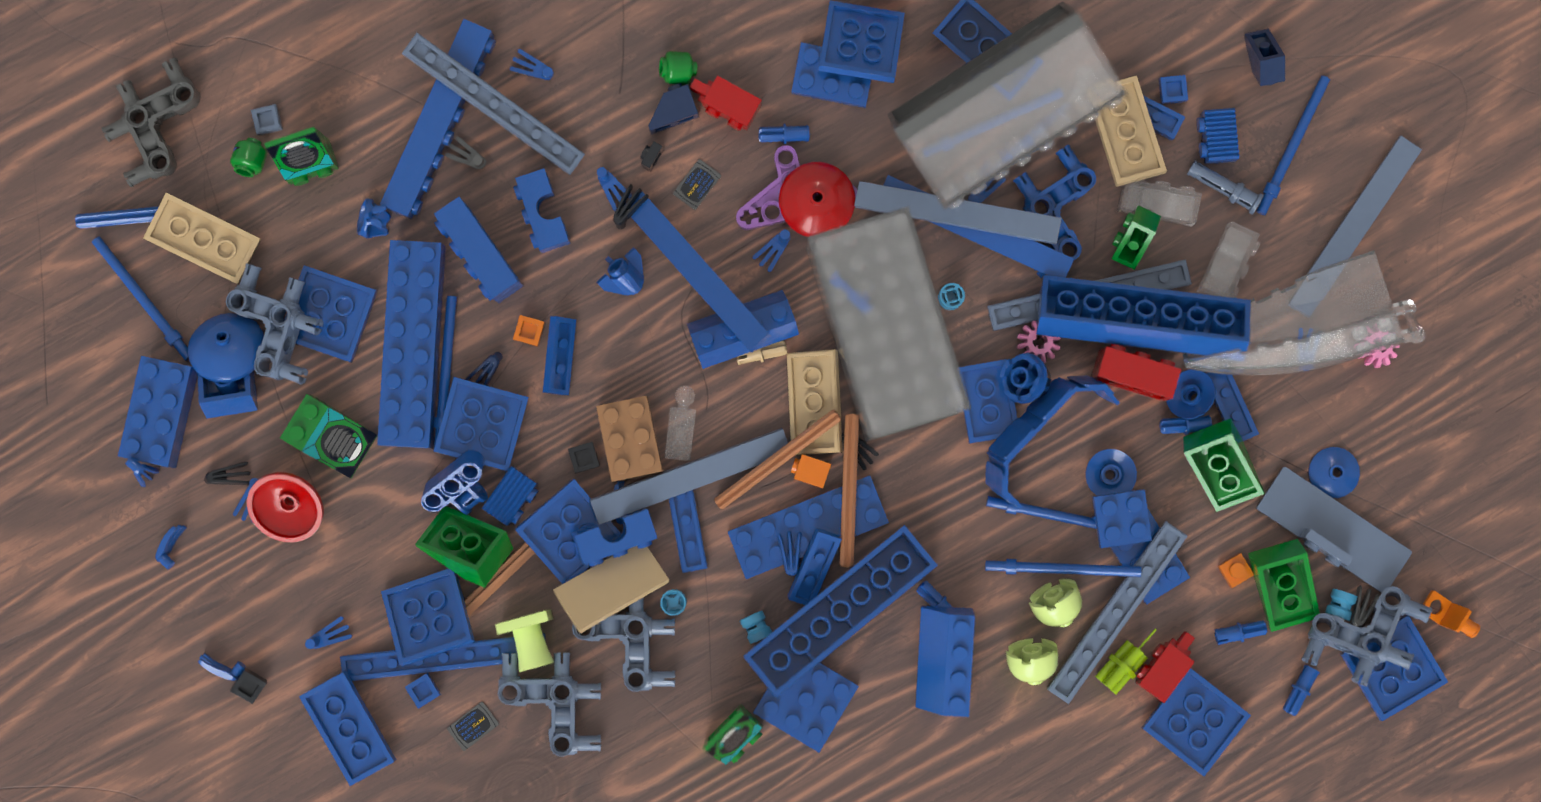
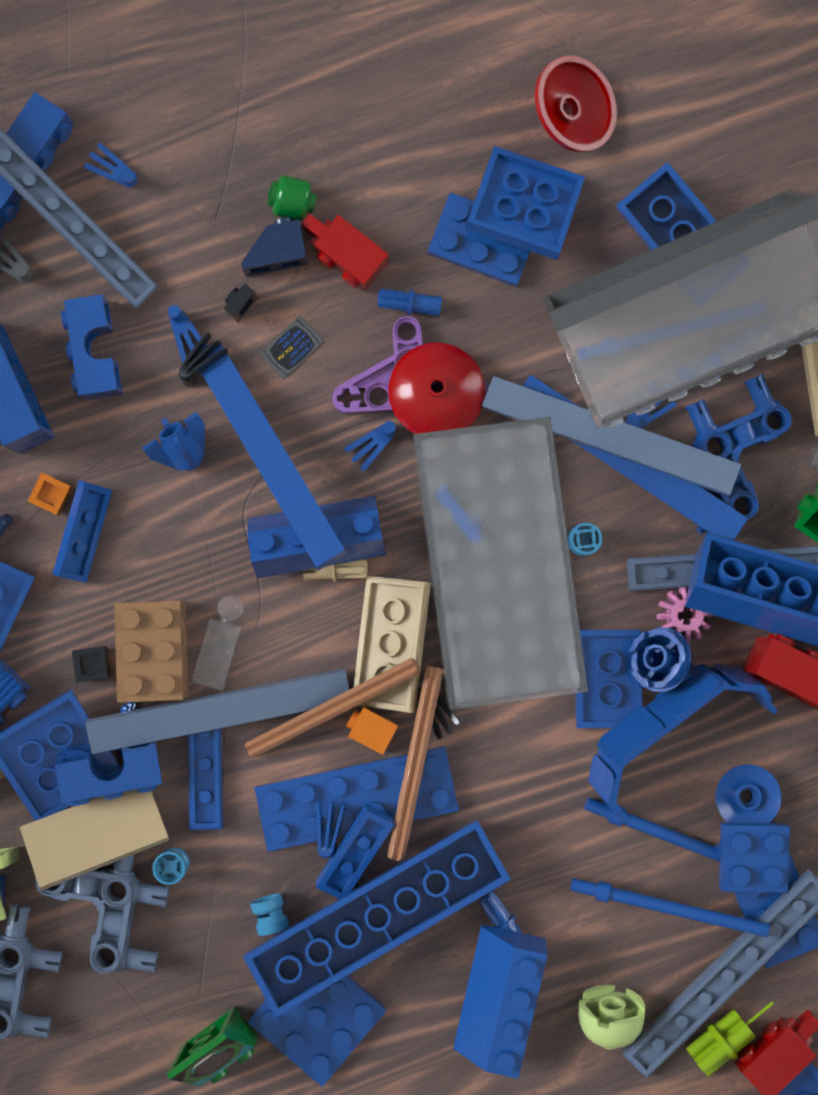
camera: 10 degrees right, 0 degrees up
(1057, 604) = (653, 950): yellowish green cylinder -> none

